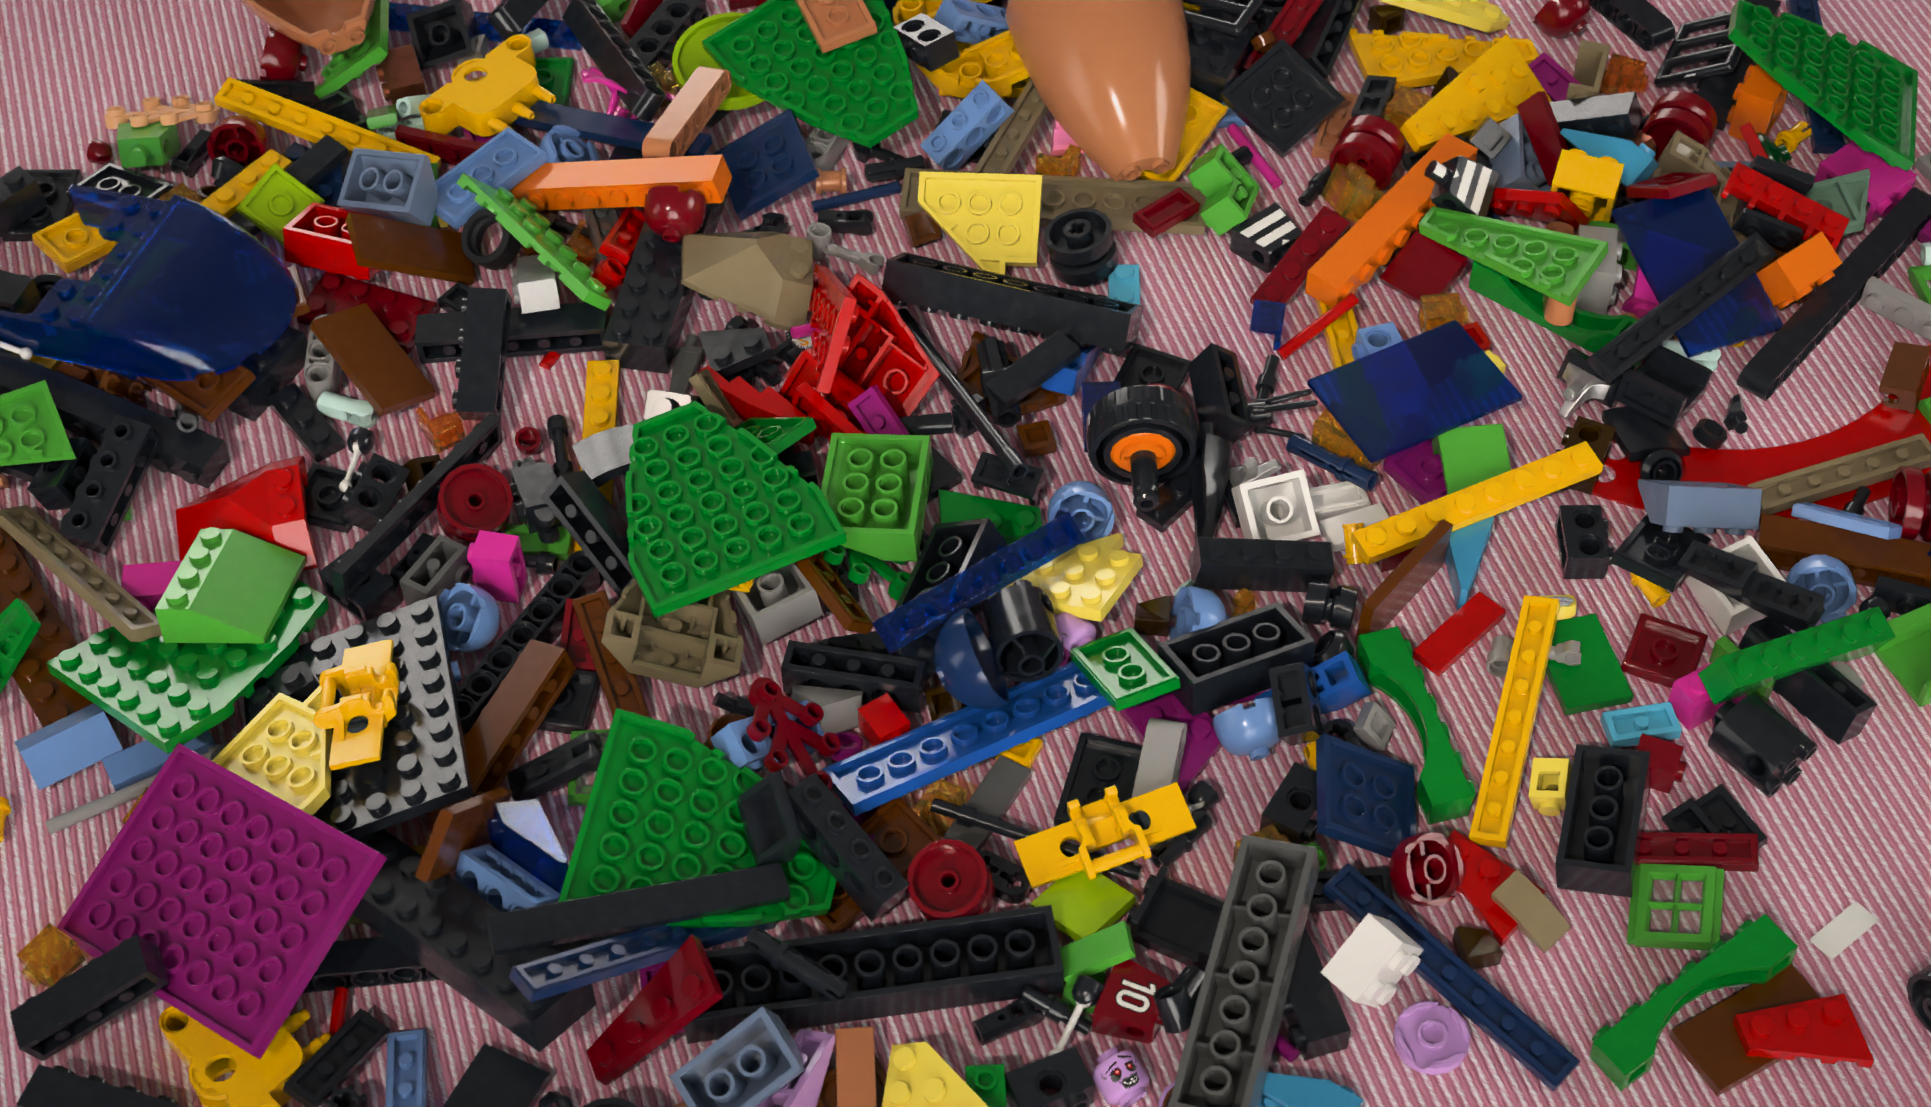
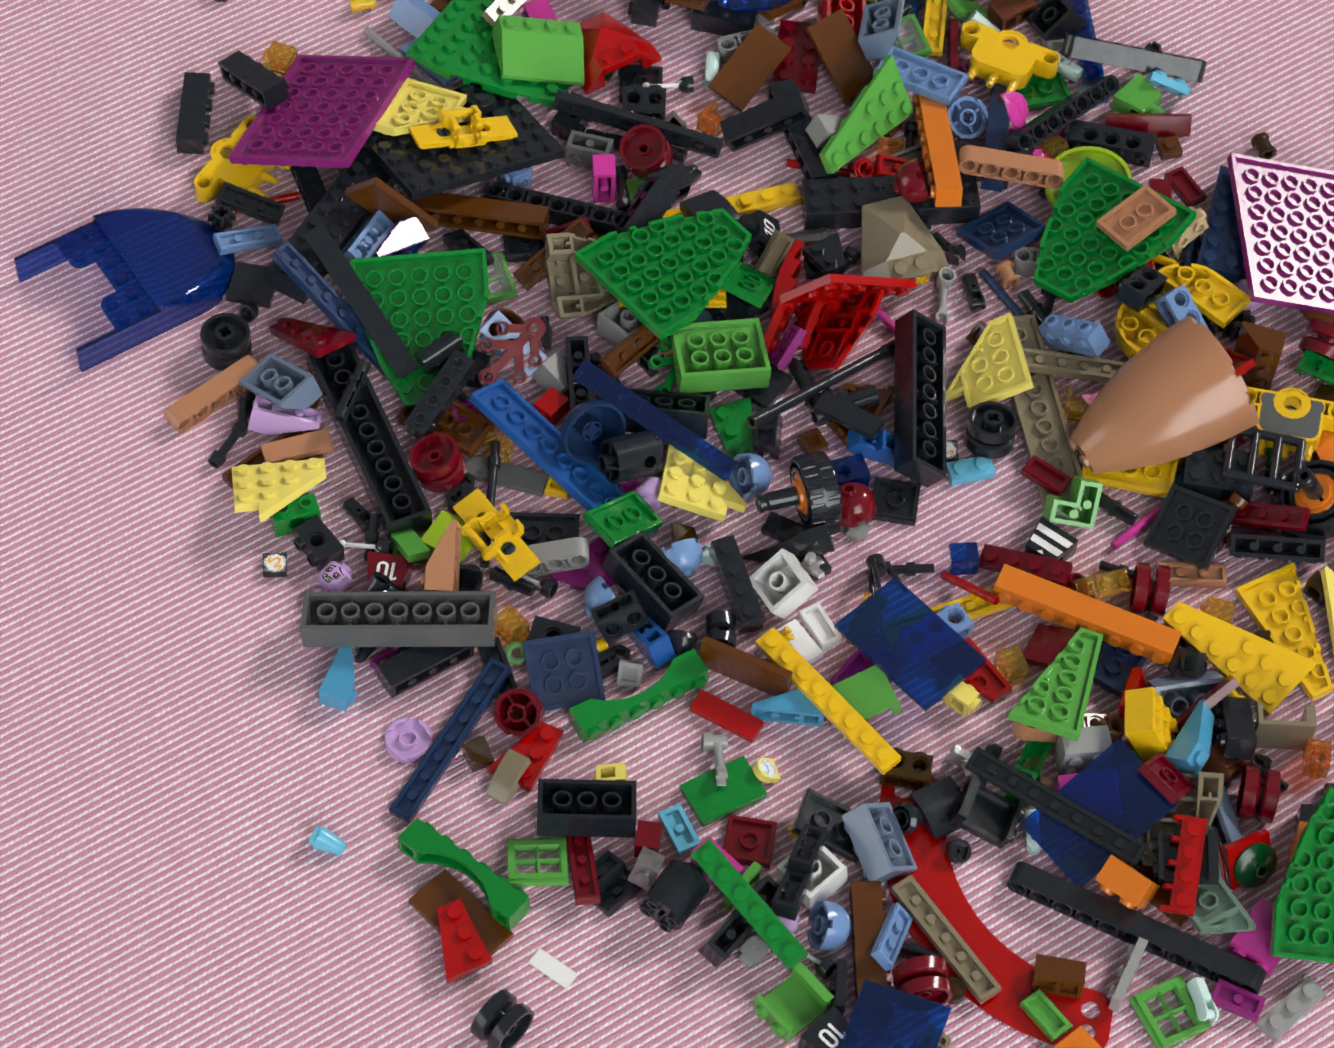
camera: 70 degrees right, 5 degrees up
(305, 422) = (695, 53): black plate -> none
(452, 299) = (825, 101): black tile -> none
(469, 617) = (562, 176): medium blue cylinder -> none
(528, 436) = (713, 164): dark red hinge -> none
(558, 433) = (732, 182): black bar -> none
(850, 745) = (531, 391): magenta tile -> none
(1162, 897) = (444, 564): none -> nougat slope
(1220, 392) = (881, 537): black brick -> none
(1244, 601) = (711, 588): clear yellow hand -> none
(1342, 467) = (851, 605): dark blue pin -> none
(1373, 961) = (437, 686): white brick -> none
(1374, 96) = (1211, 586): black hinge -> none
(1462, 185) = (1123, 647): black torso -> none
(1514, 722) = (655, 749): yellow plate -> none
(1552, 77) = (1294, 706): magenta plate -> none
(1583, 542) = (824, 772): black brick -> none
(1711, 770) = (646, 868): none -> flat silver brick
(1735, 415) = (984, 867): black bar -> none

